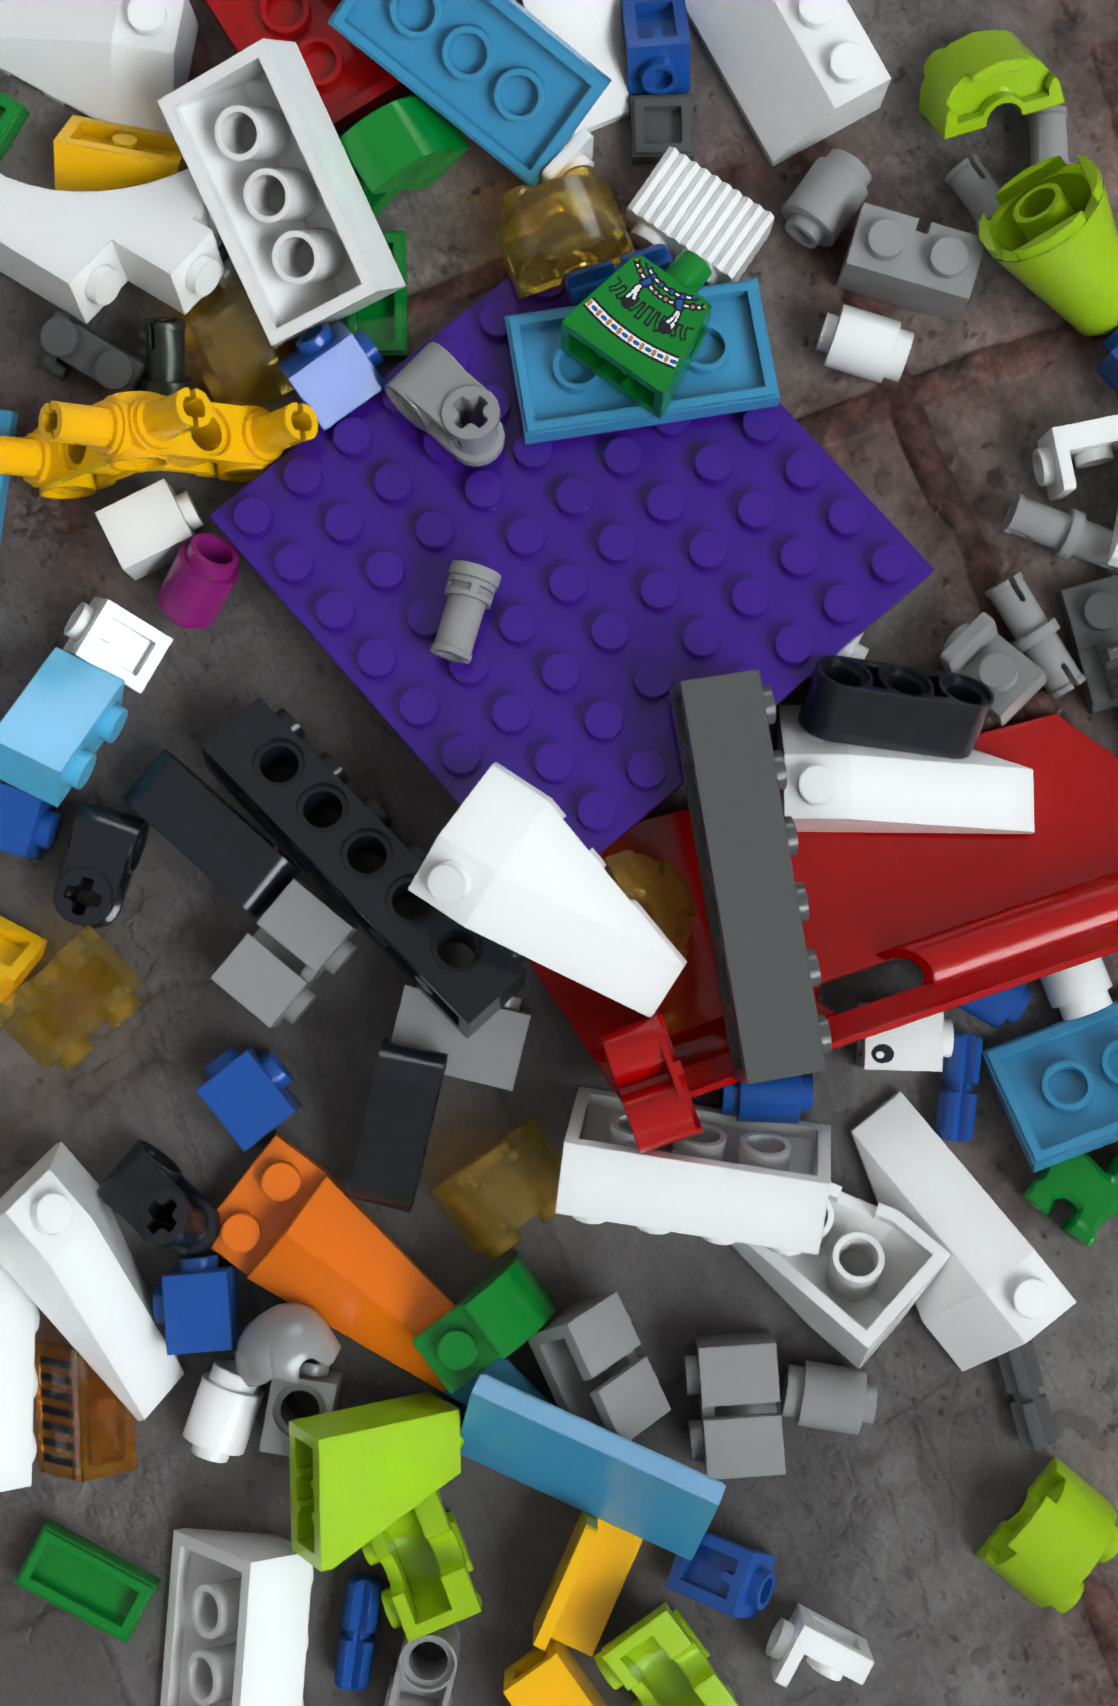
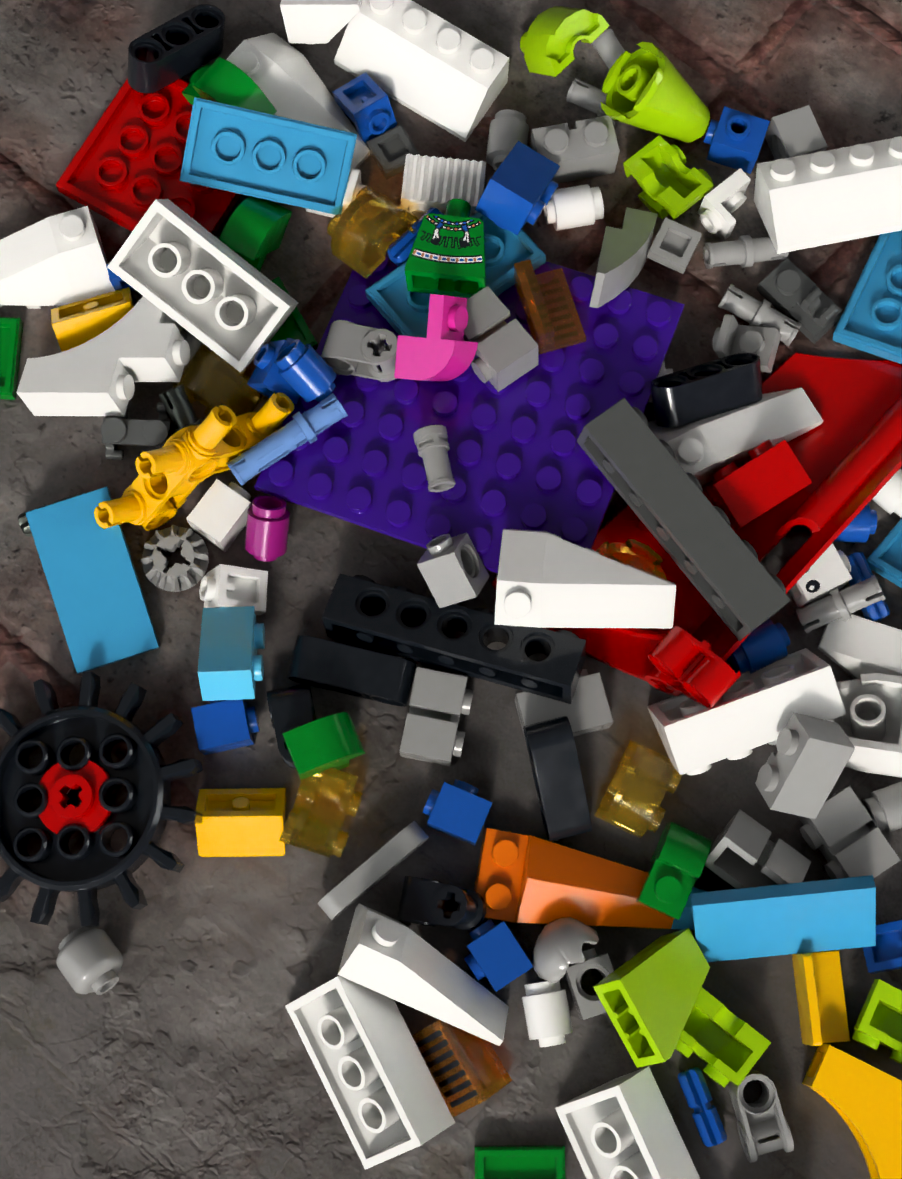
camera: 30 degrees left, 10 degrees down
(91, 557) = (179, 576): none -> light grey gear
(101, 1110) = (373, 870): none -> light grey beam
(109, 919) = (323, 744): none -> green brick
(293, 474) = (293, 435): none -> medium blue pin
(354, 394) = (306, 371): none -> blue brick
(402, 779) = (452, 569): none -> light grey brick
(553, 461) = (443, 351): none -> dark pink brick
(636, 492) = (503, 348): none -> light grey piece
(724, 1291) = (805, 767): none -> light grey piece
(741, 477) = (548, 307): none -> clear orange panel
(791, 281) = (519, 189): none -> blue brick
(887, 454) = (622, 255): none -> light grey slope
(888, 875) = (759, 483): none -> red brick
(909, 1094) = (840, 604): none -> light grey pin
(971, 475) = (674, 245): none -> light grey tile
(1016, 373) = (665, 179): none -> lime cylinder

